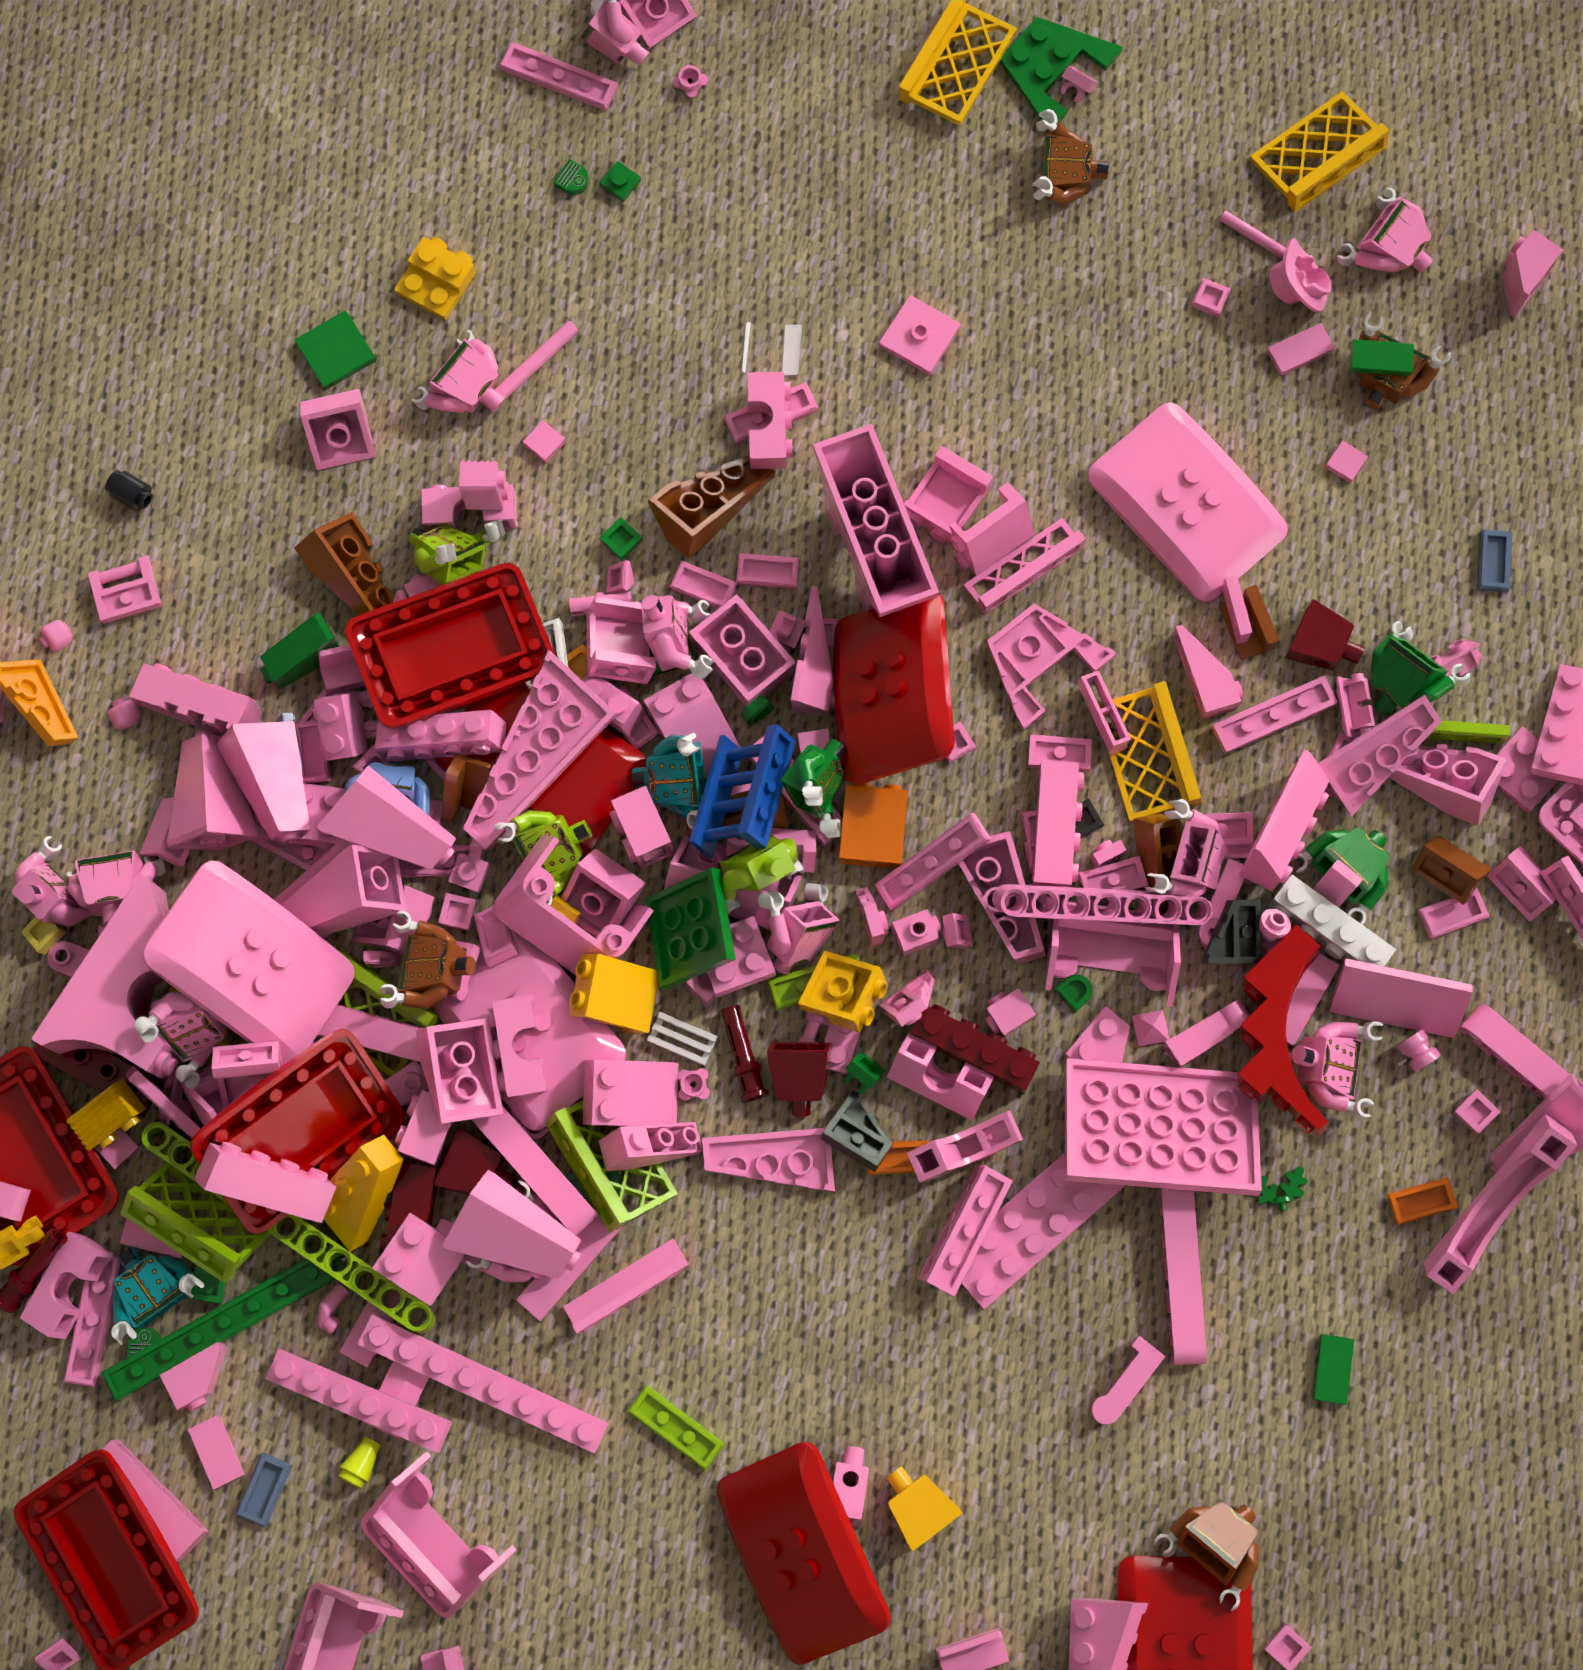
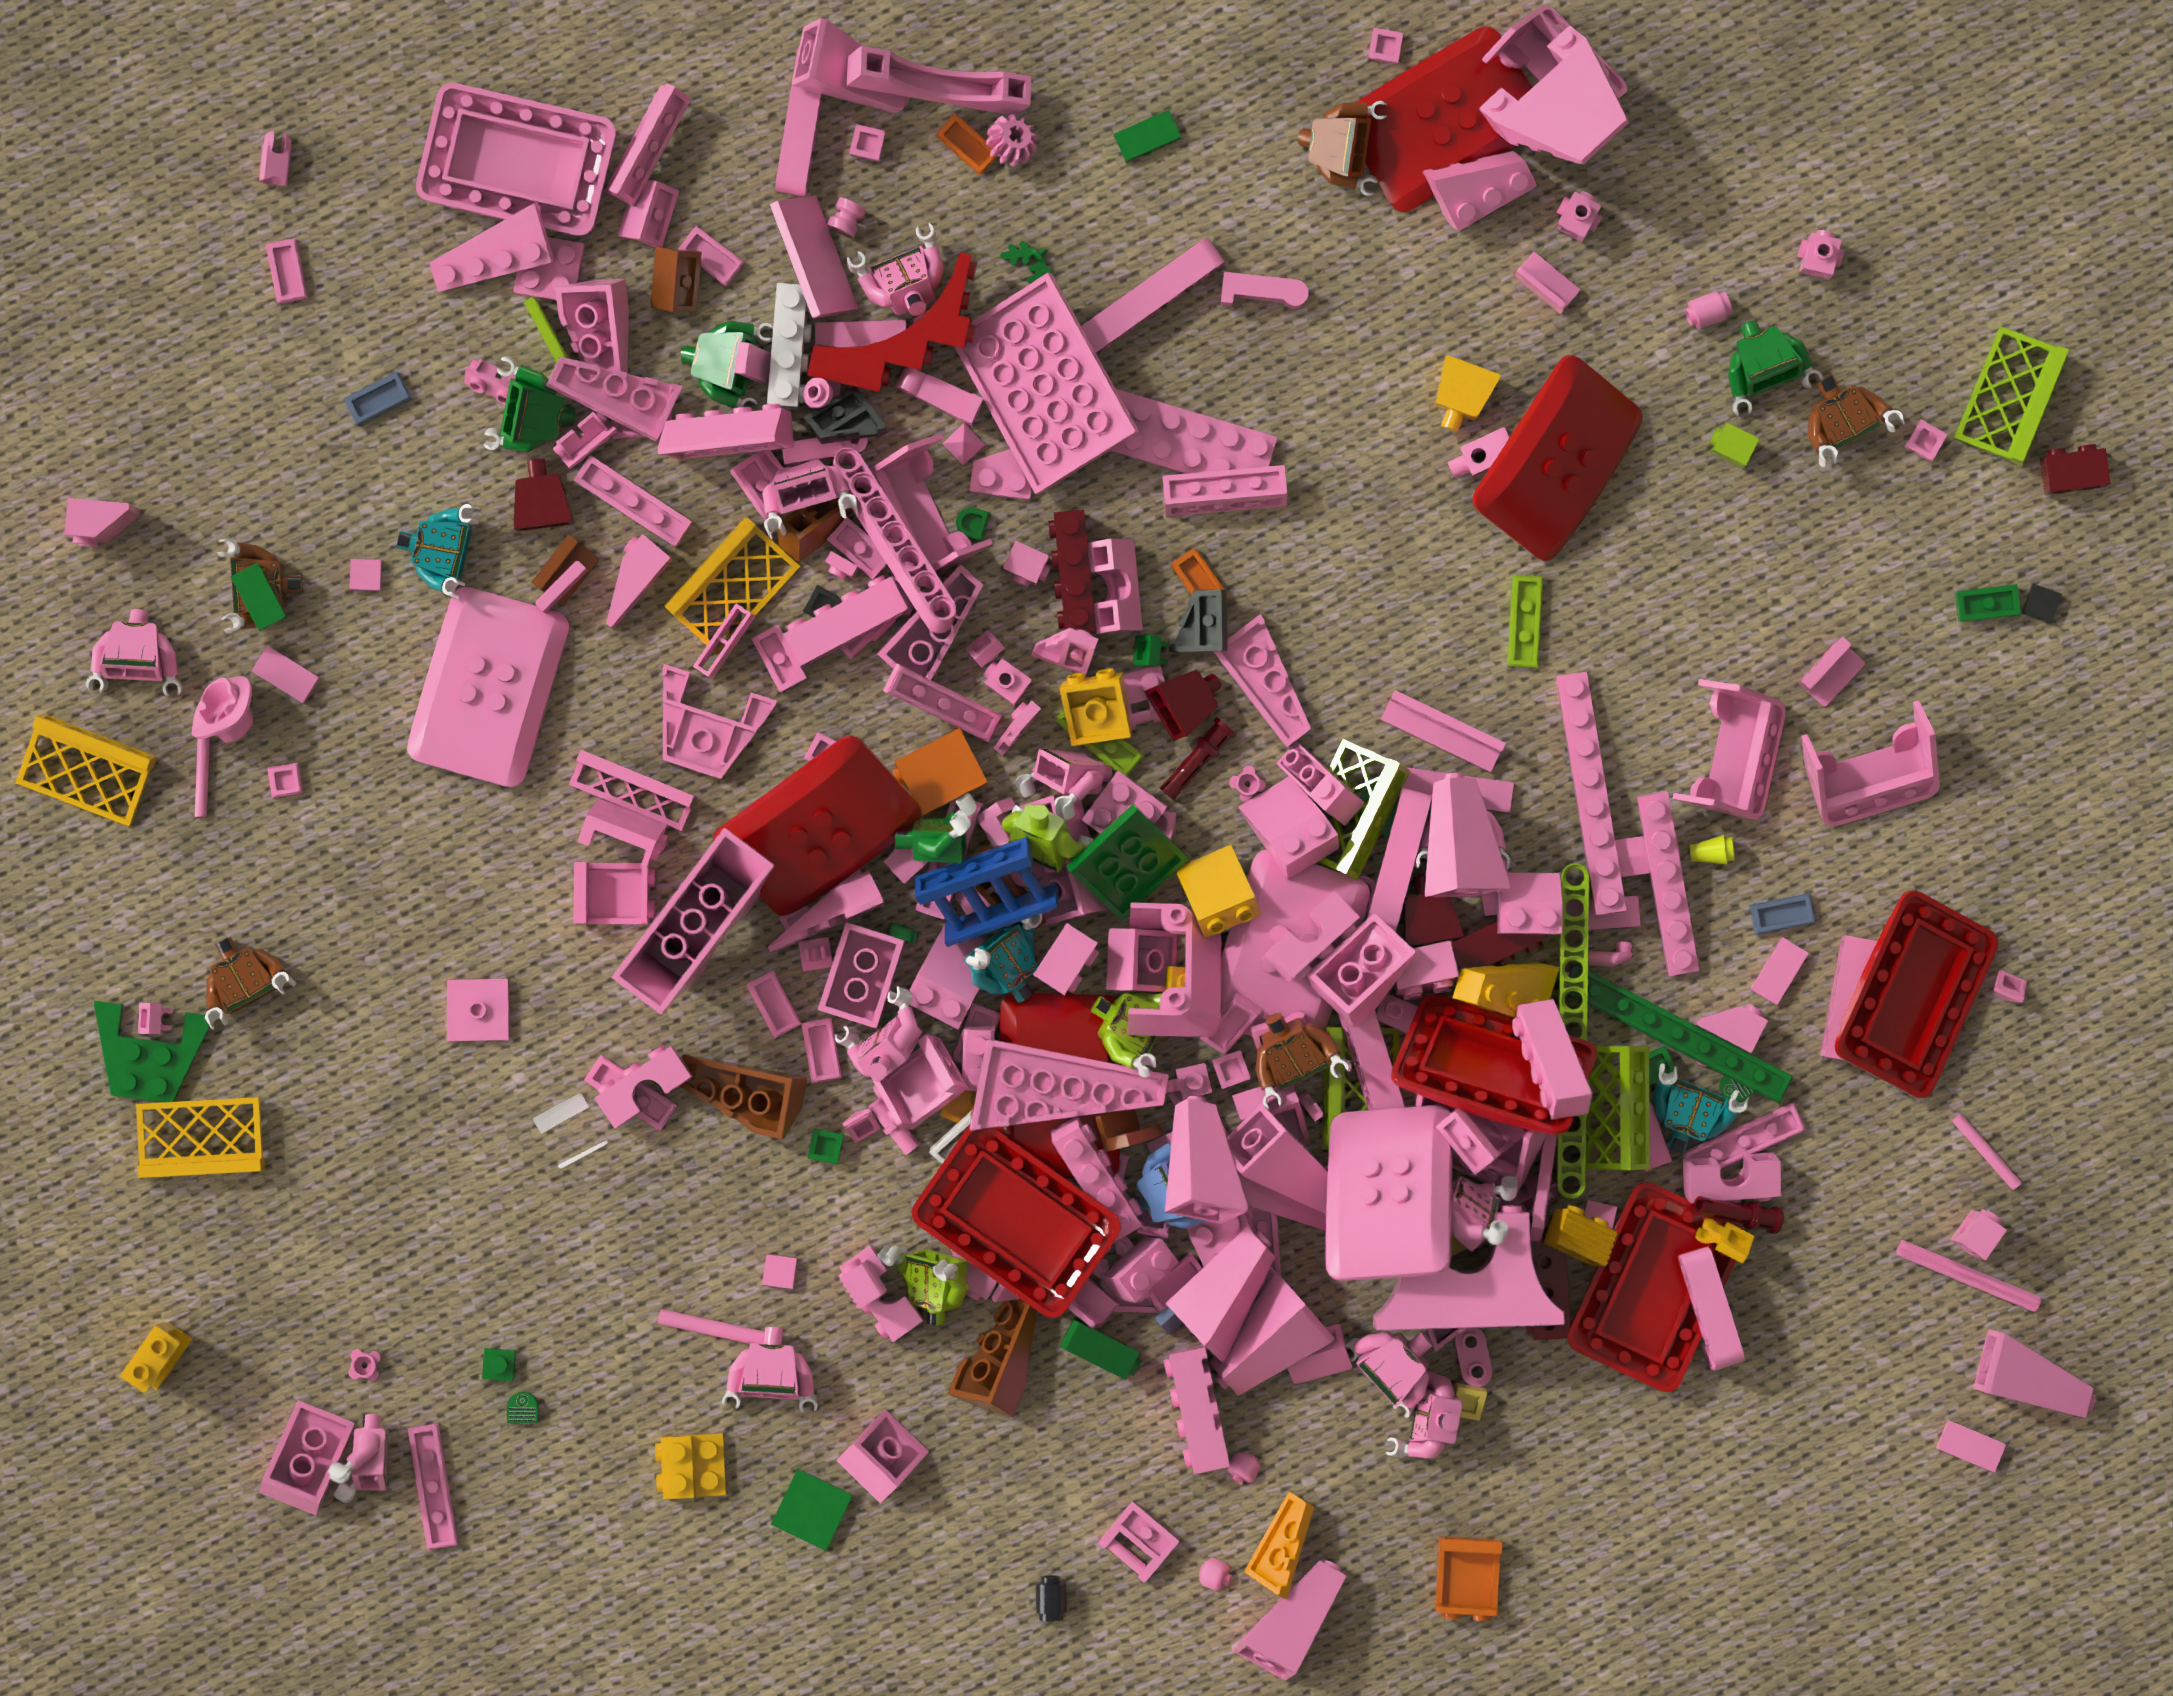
camera: 125 degrees left, 10 degrees up
(707, 1049) = (1211, 791): white tile -> none
(965, 1147) = (1159, 531): bright pink arch -> none
(1331, 531) = (441, 547): none -> teal torso
(1410, 1249) = (1012, 140): none -> bright pink gear

